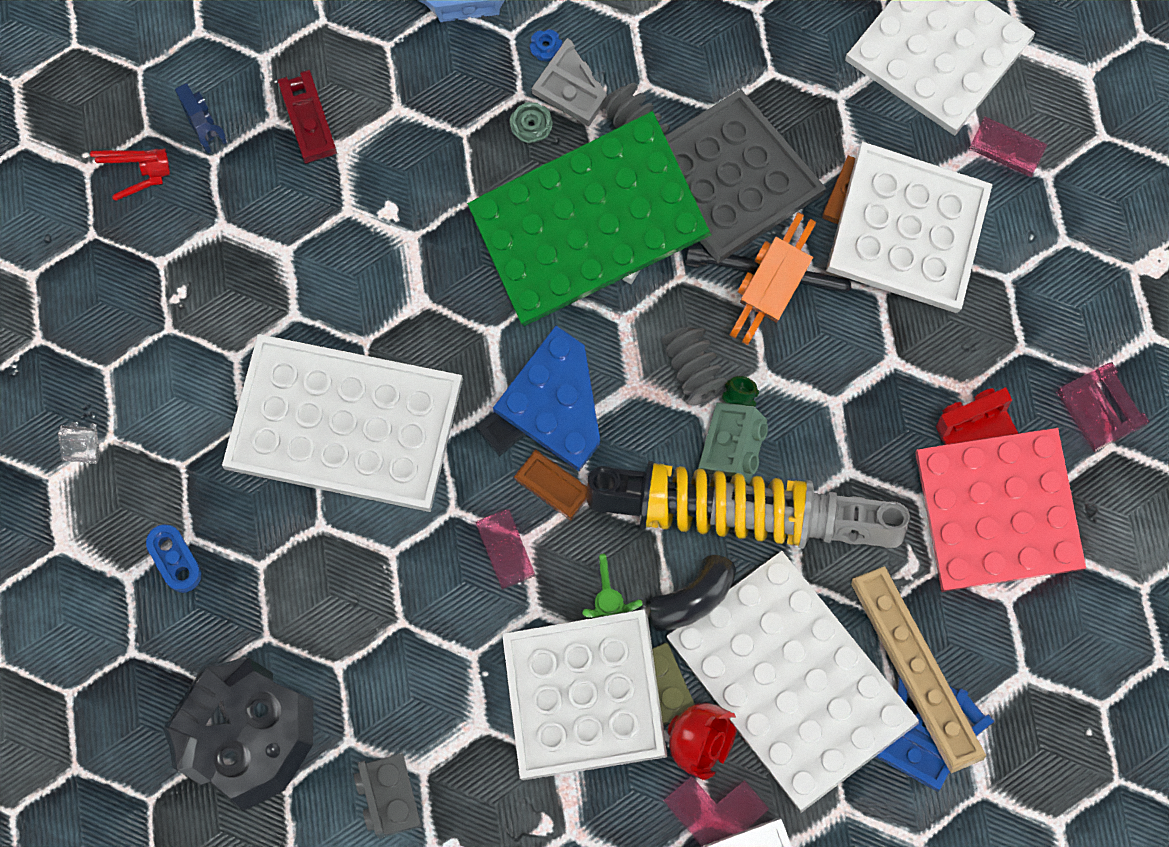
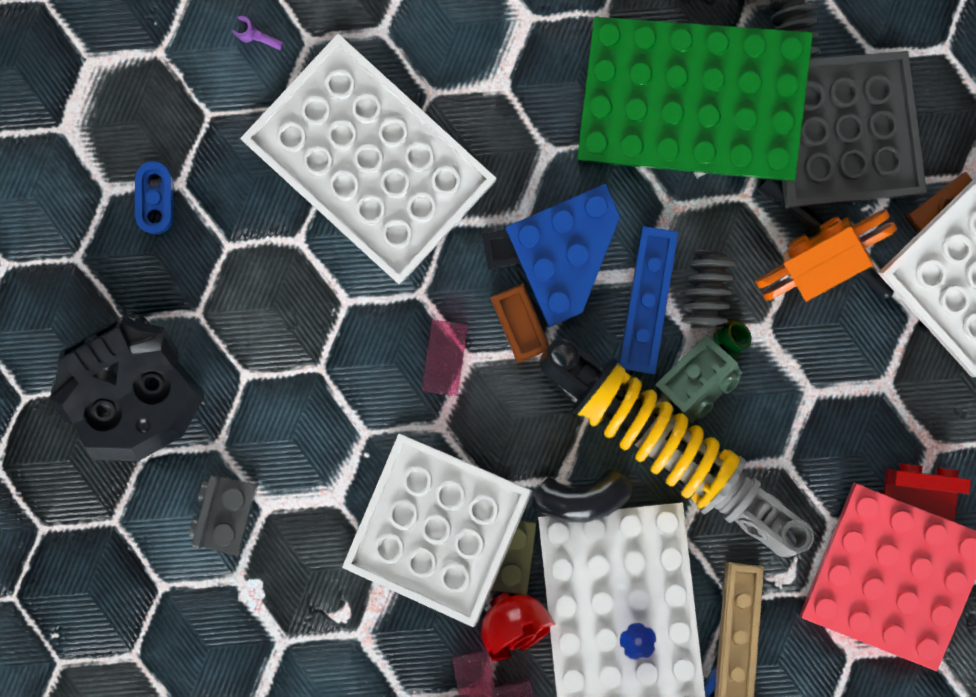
camera: 30 degrees right, 15 degrees up
(79, 443) = (127, 44): clear tile -> none
(187, 376) = (254, 34): none -> medium lavender hand
(608, 600) = (506, 460): bright green plant -> none
(650, 402) = (648, 300): none -> blue plate
(811, 692) = (628, 638): none -> clear blue plate

